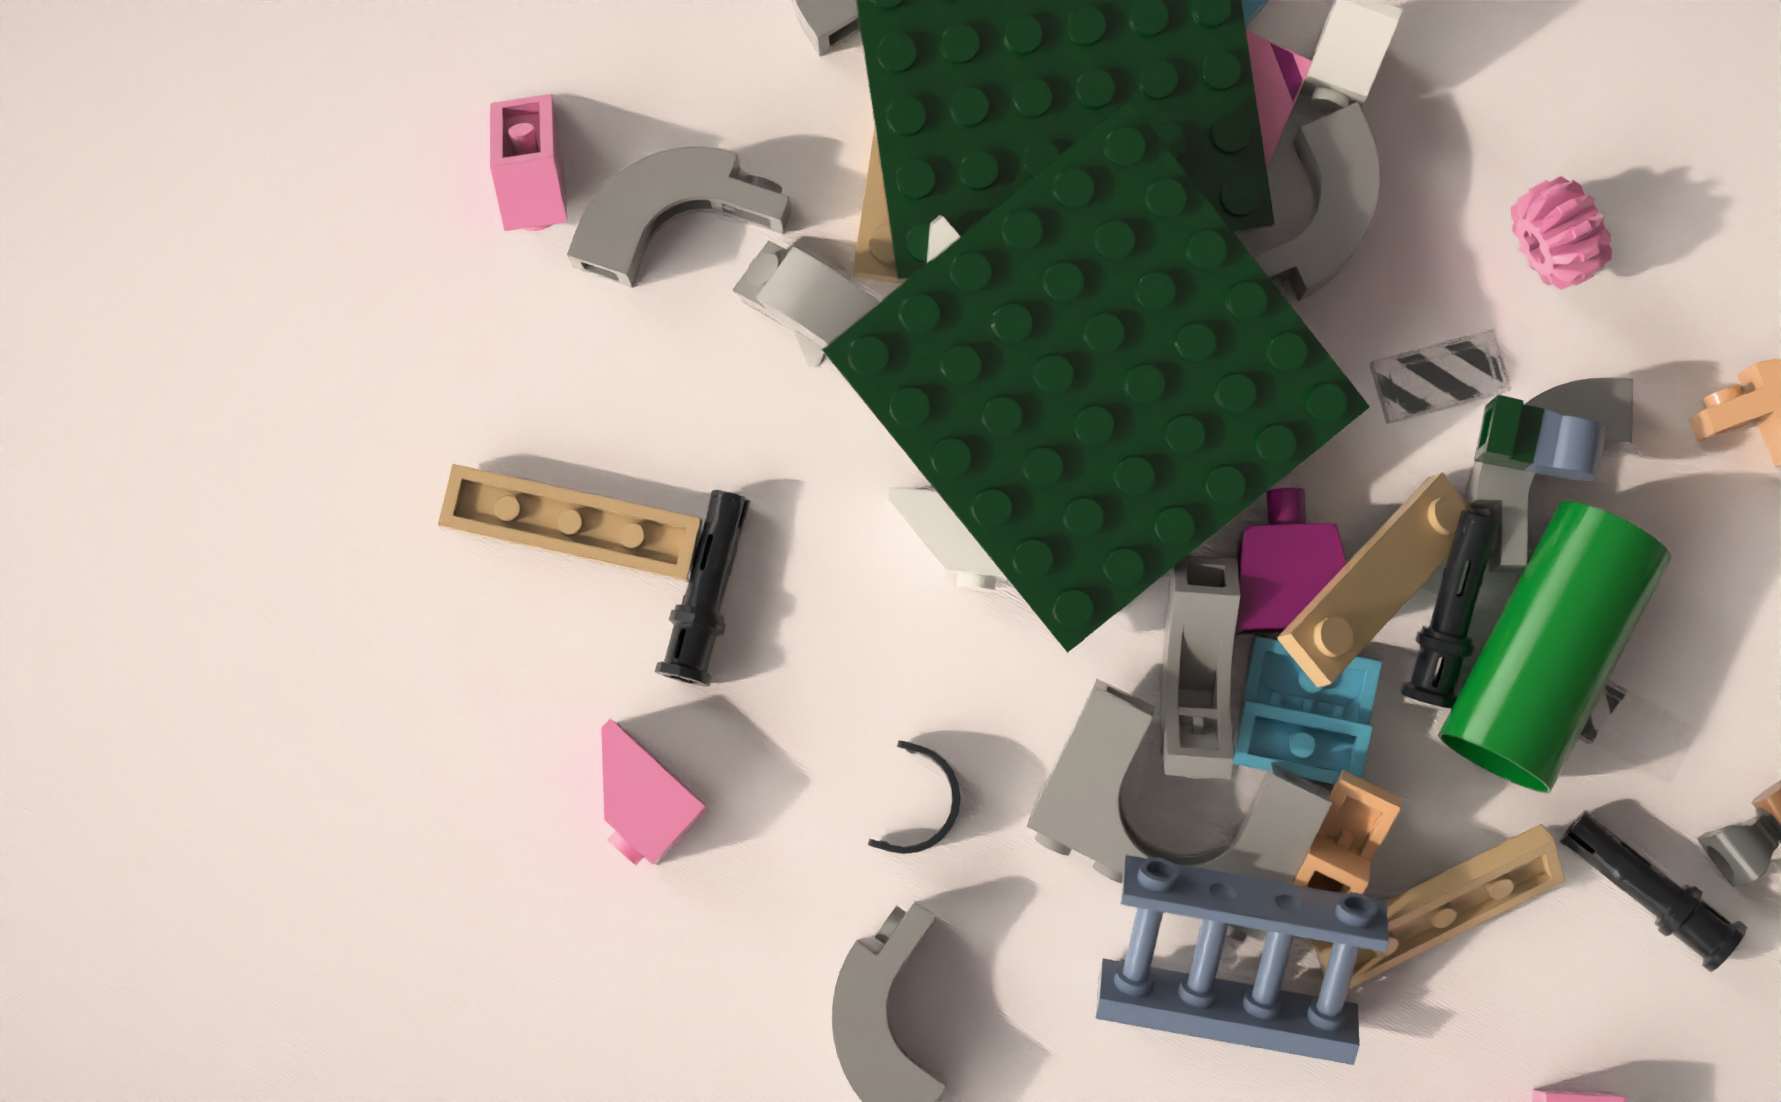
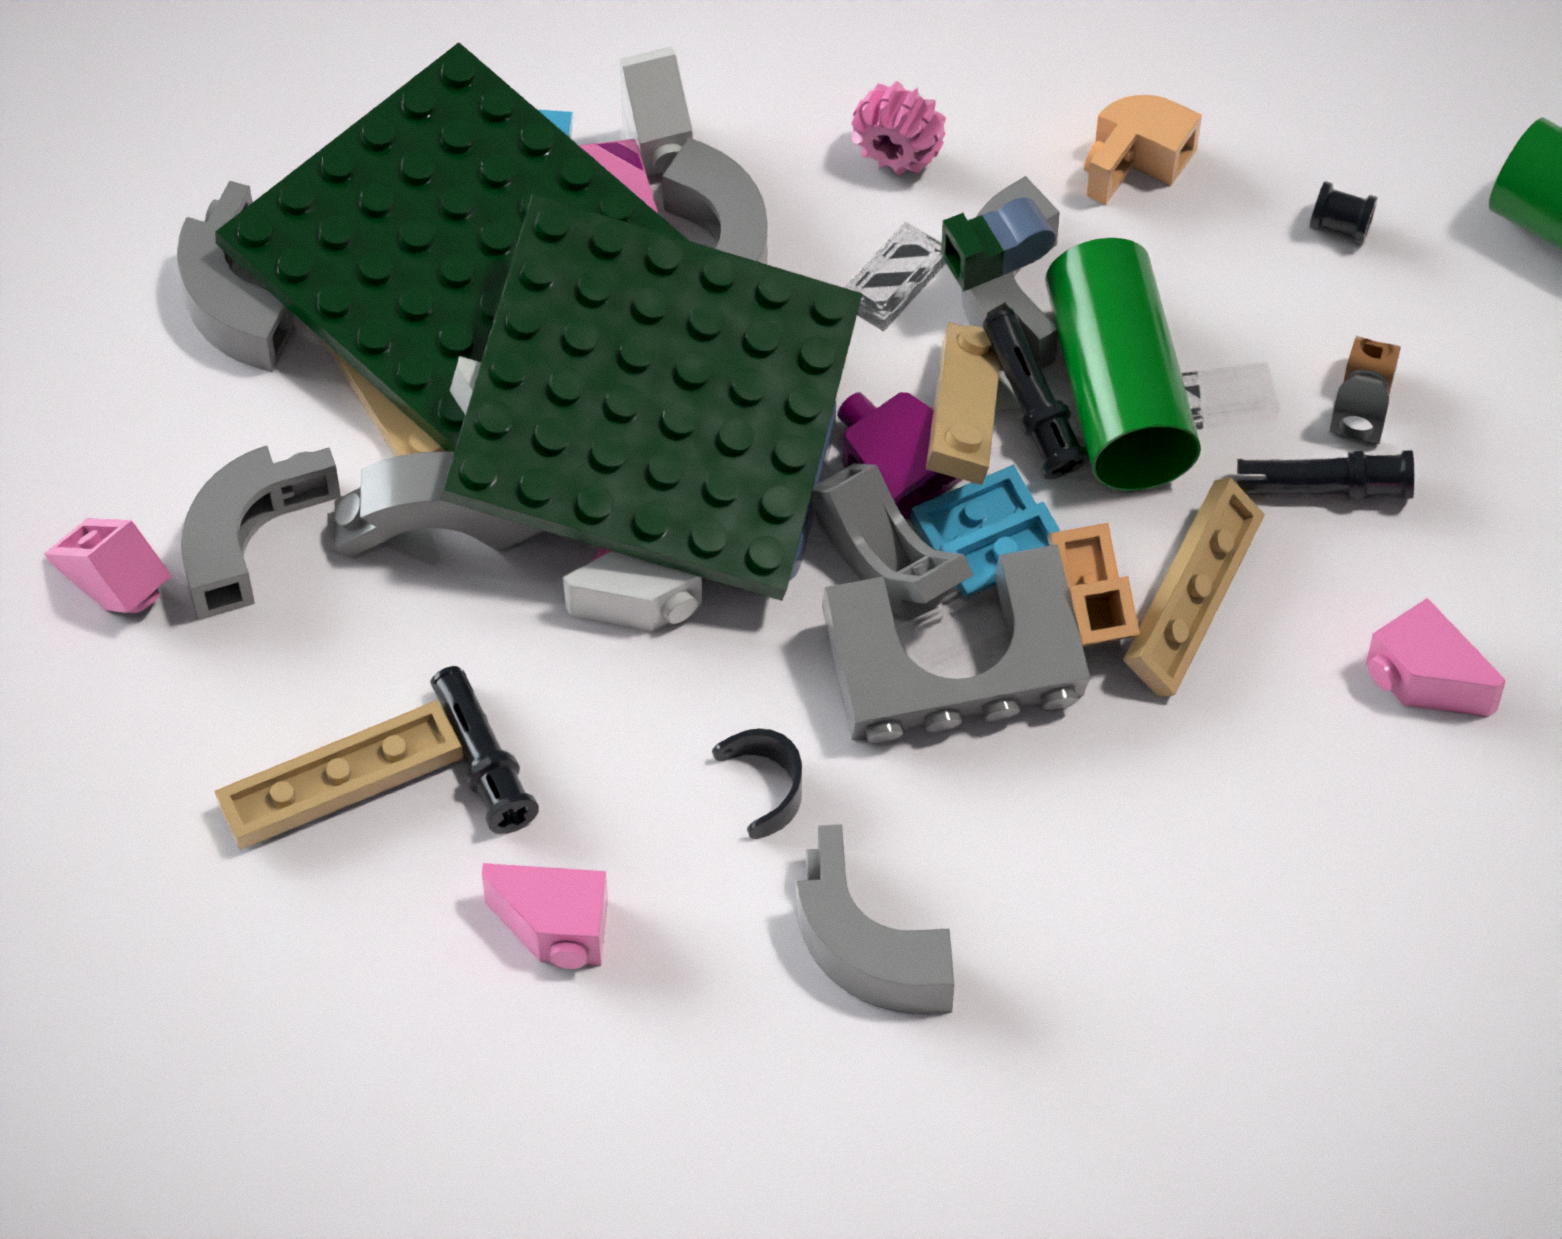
camera: 40 degrees left, 25 degrees down
(1230, 1010) = (1130, 730): sand blue fence -> none

